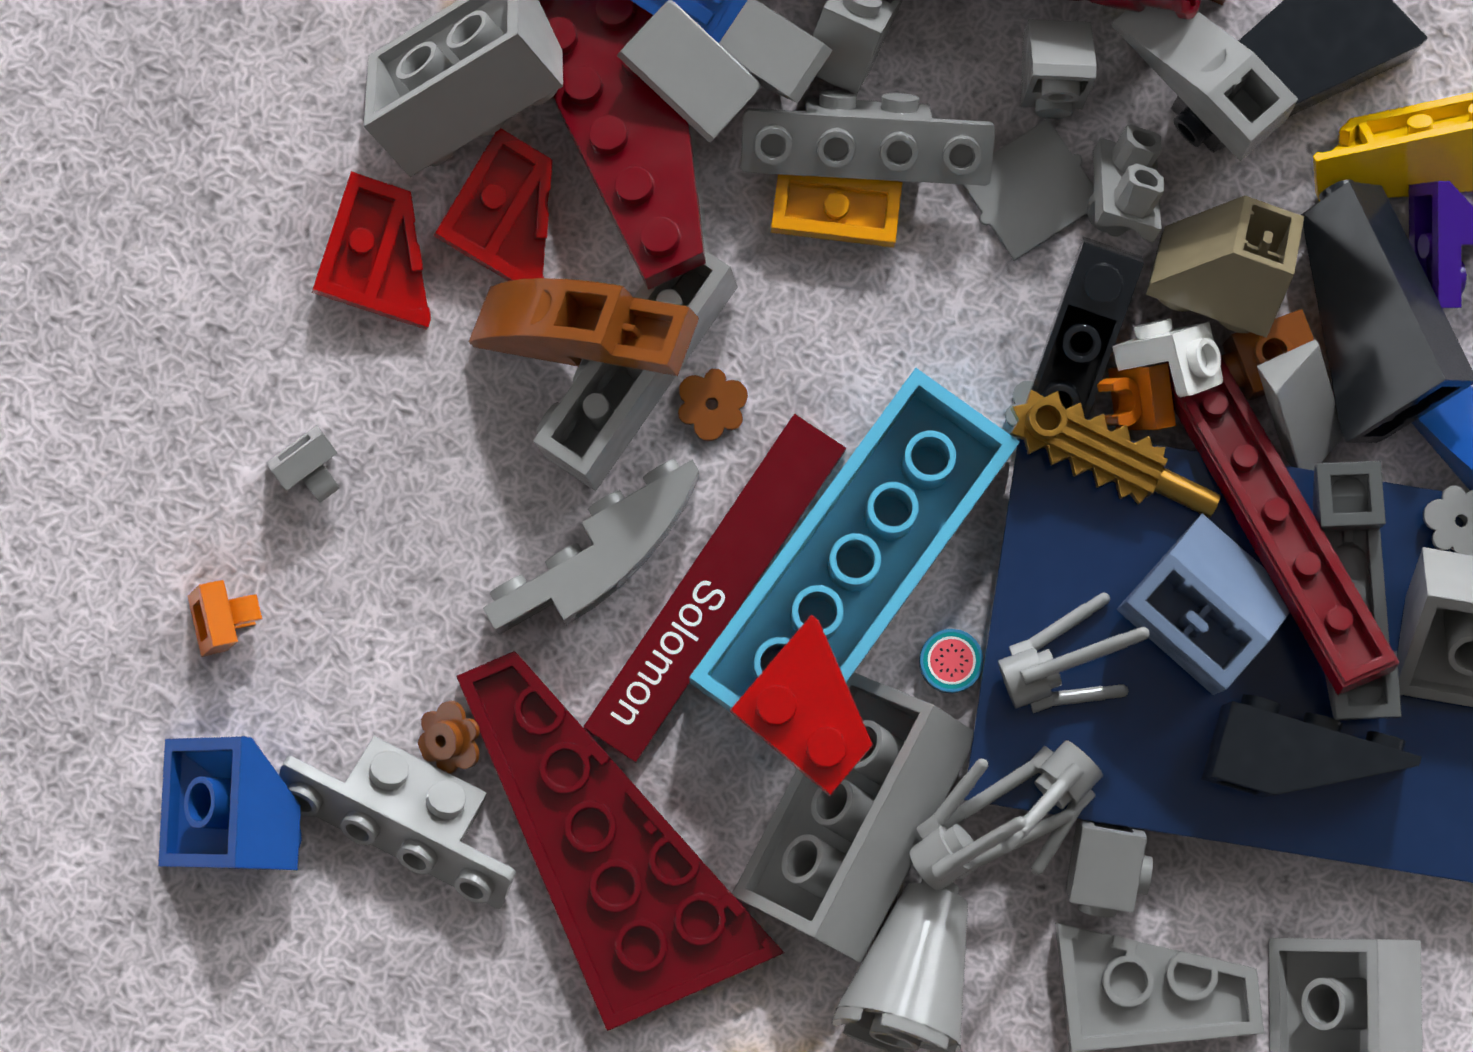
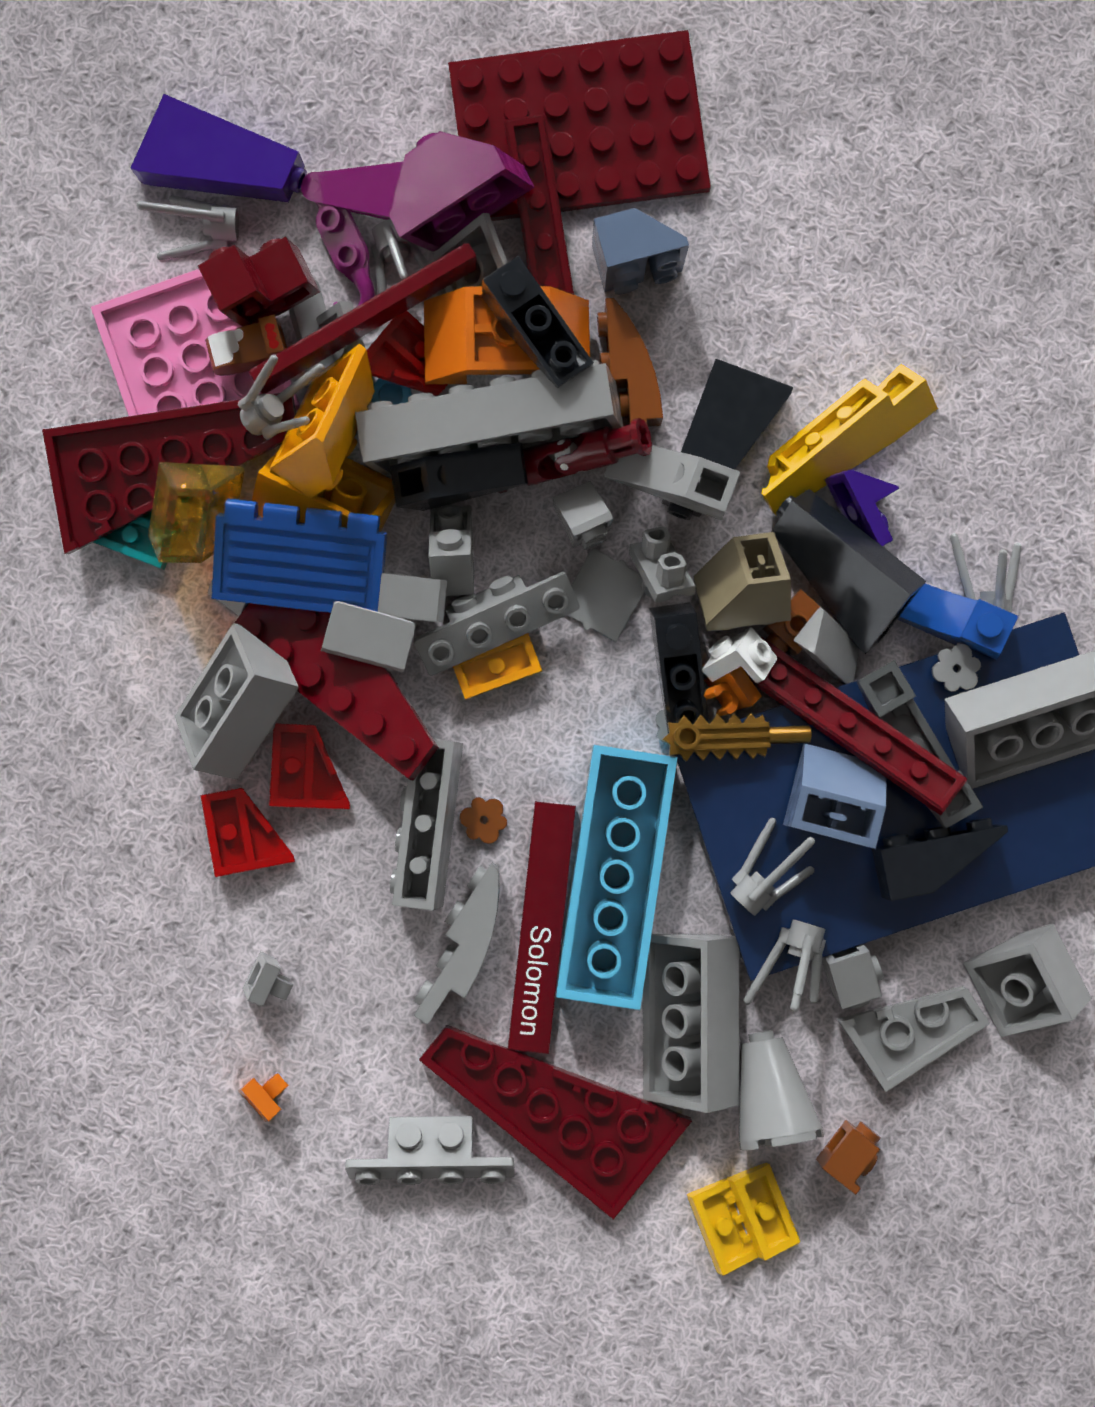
camera: 20 degrees left, 5 degrees up
(226, 807) = (327, 1209): blue slope -> none
(449, 738) = (433, 1095): dark orange plant -> none
(581, 321) = (387, 821): dark orange slope -> none
(807, 710) = (635, 983): red wing -> none
(951, 661) = (700, 898): tile -> none
(952, 852) = (760, 1018): light grey plant -> none

